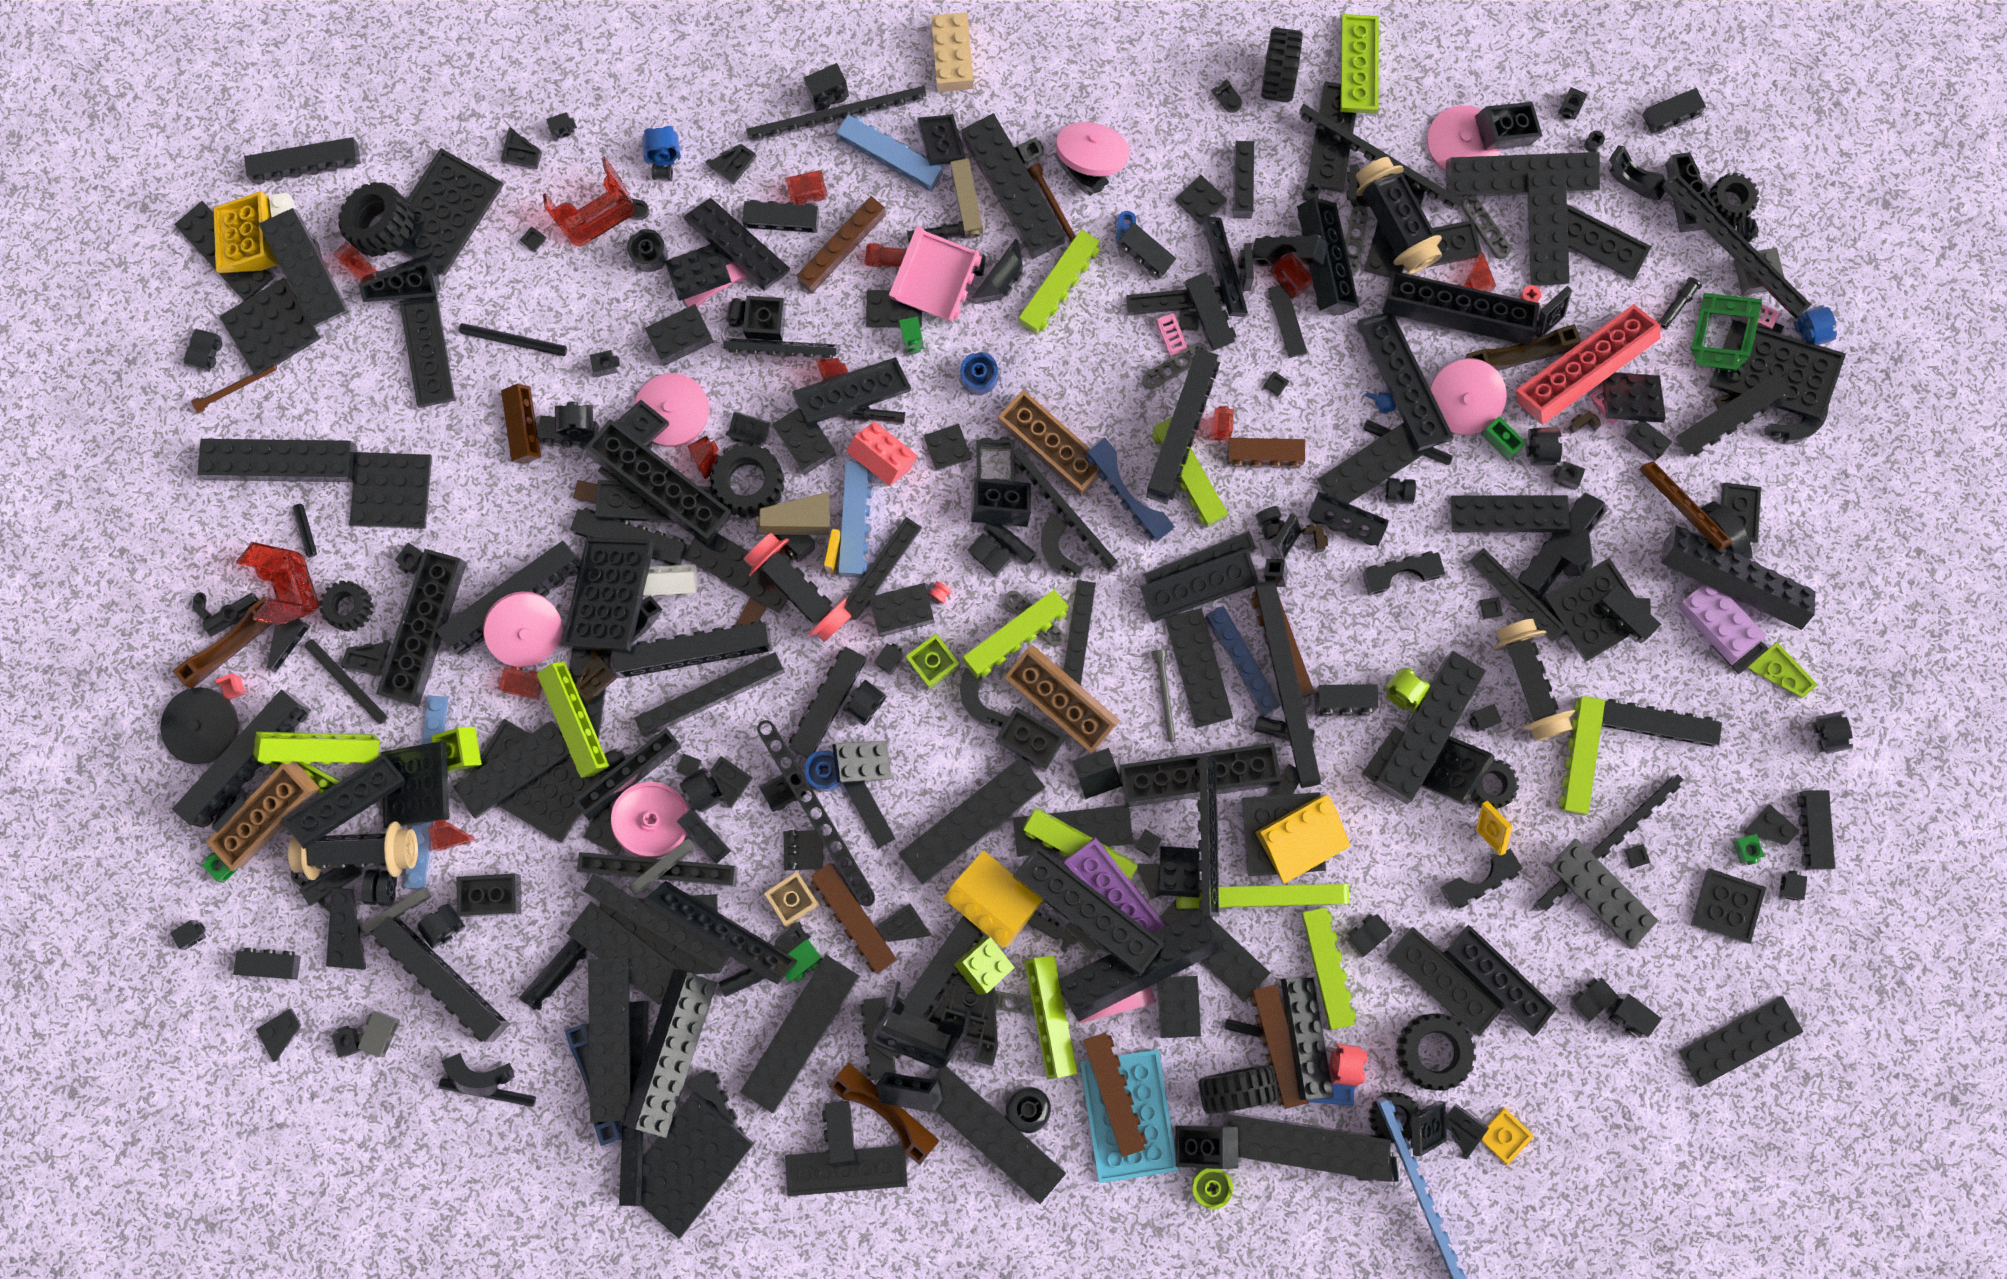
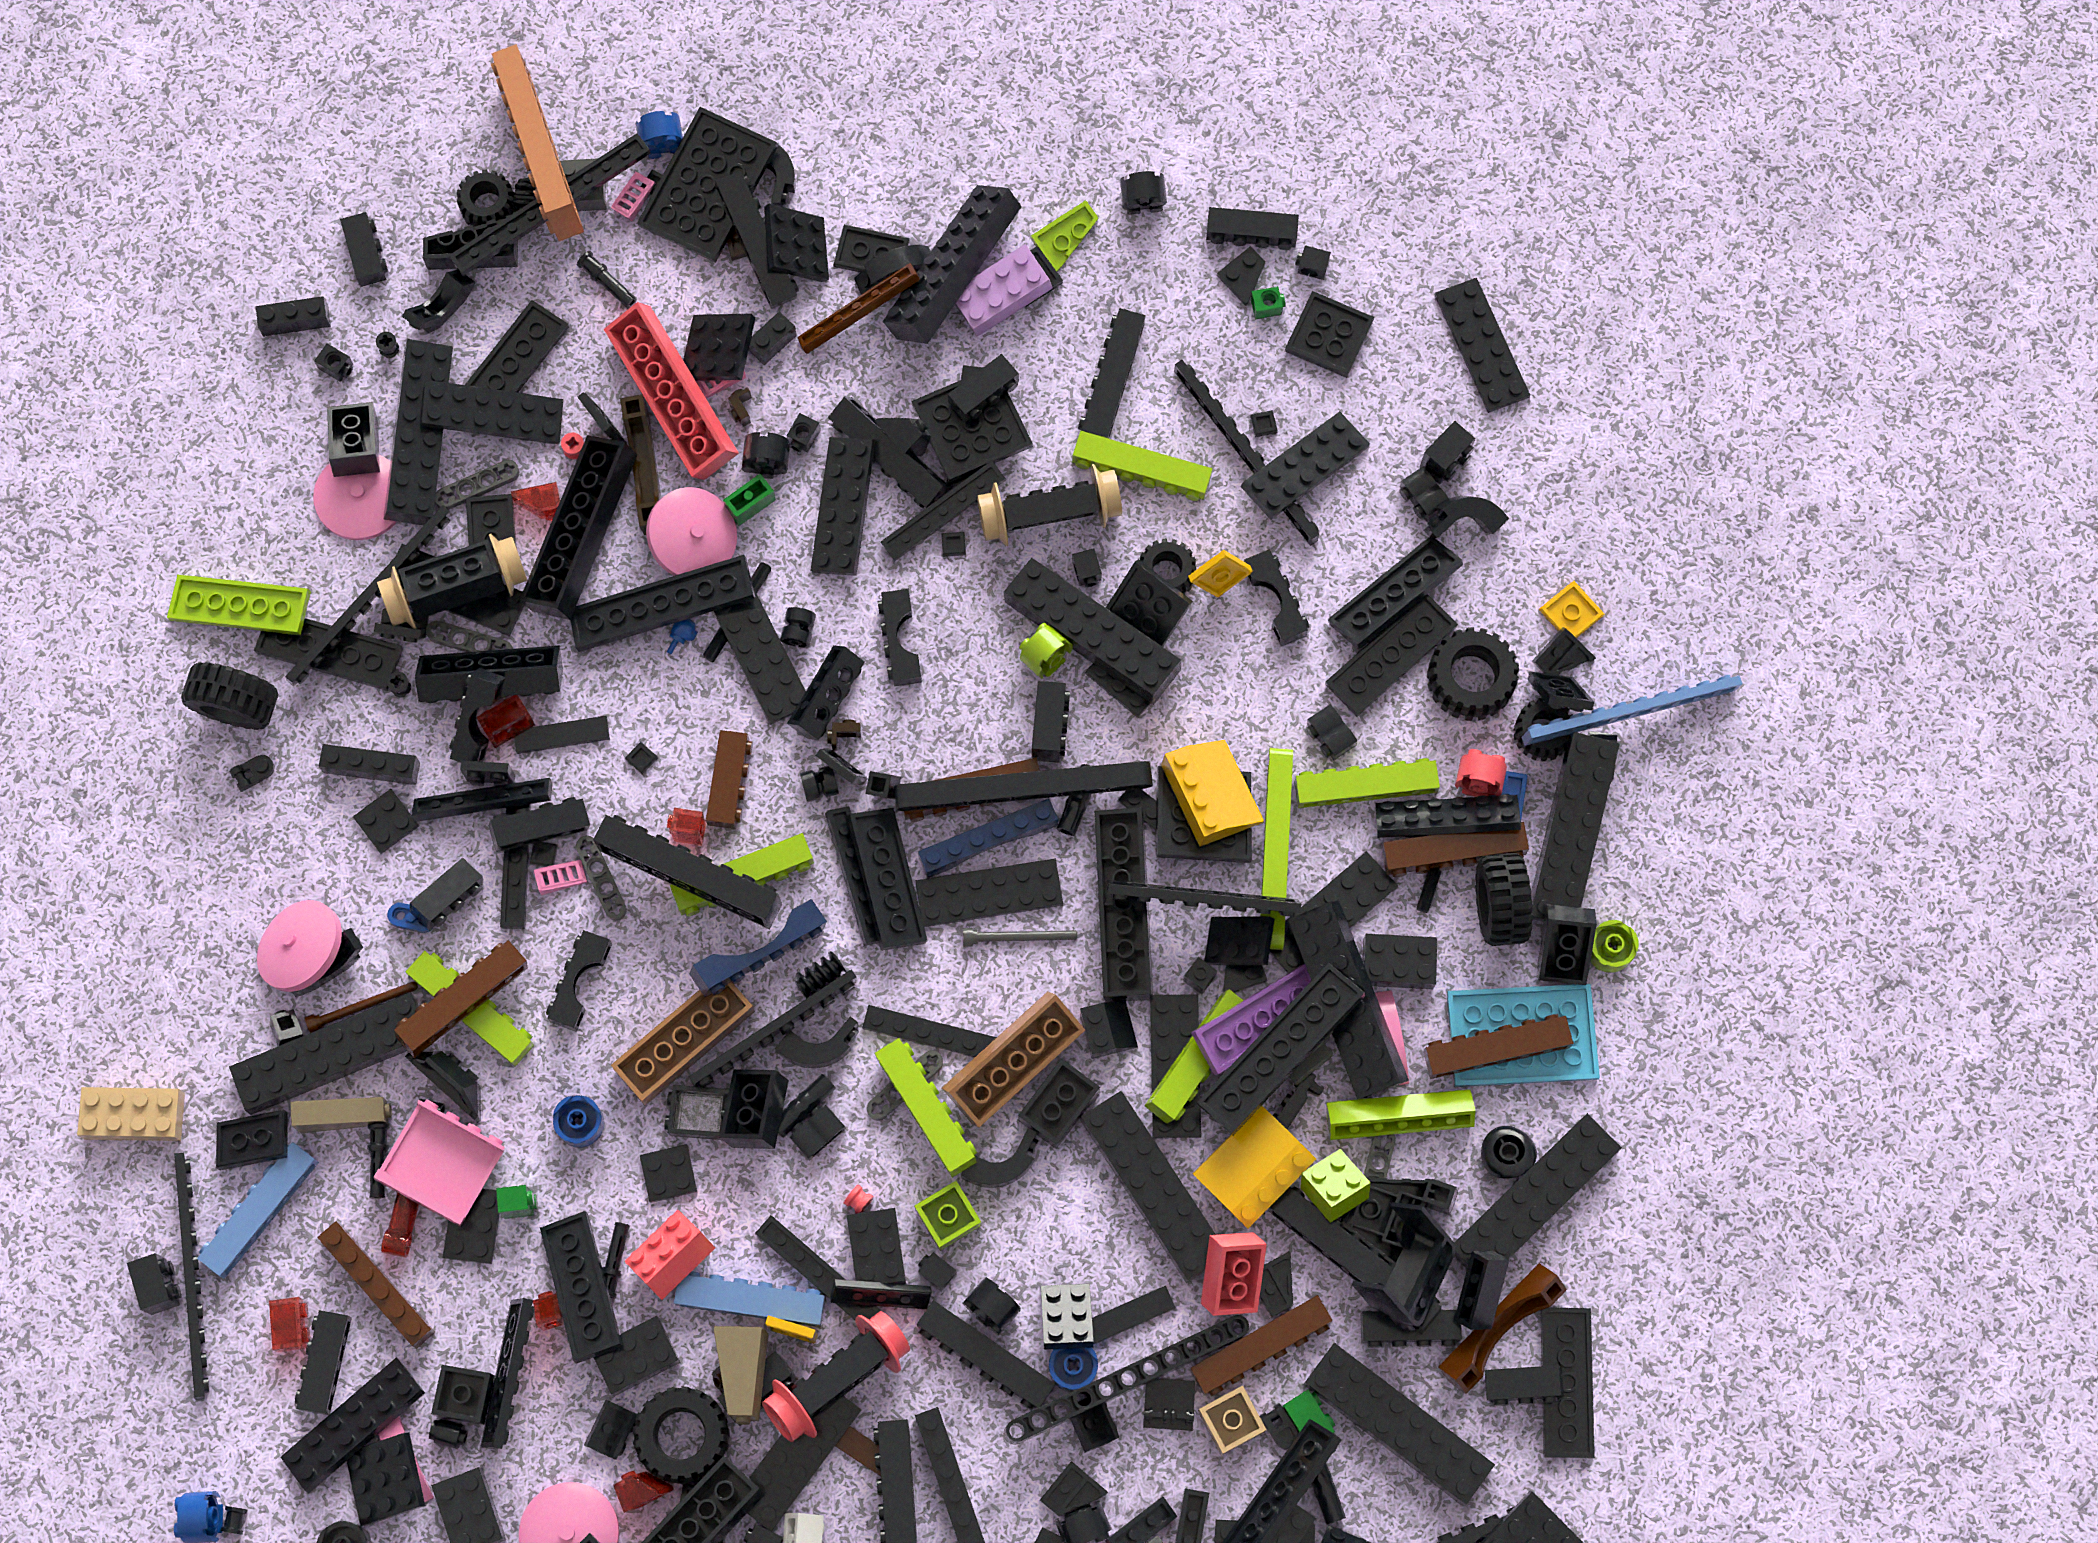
camera: 90 degrees left, 5 degrees down
(732, 162) = (236, 1423): black wing -> none
(866, 616) = (880, 1294): none -> black tile
(905, 889) = (1233, 1273): none -> coral brick
(1062, 270) = (460, 998): none -> reddish brown brick
(1067, 353) = (589, 952): none -> black arch
(1113, 541) = (819, 975): none -> black piece
(1585, 1034) = (1481, 510): none -> black arch
(1607, 66) = (293, 316): none -> black brick
(1726, 306) = (622, 222): green wedge -> none
(1736, 448) = (796, 243): none -> black plate
(1787, 225) = (536, 143): none -> nougat brick

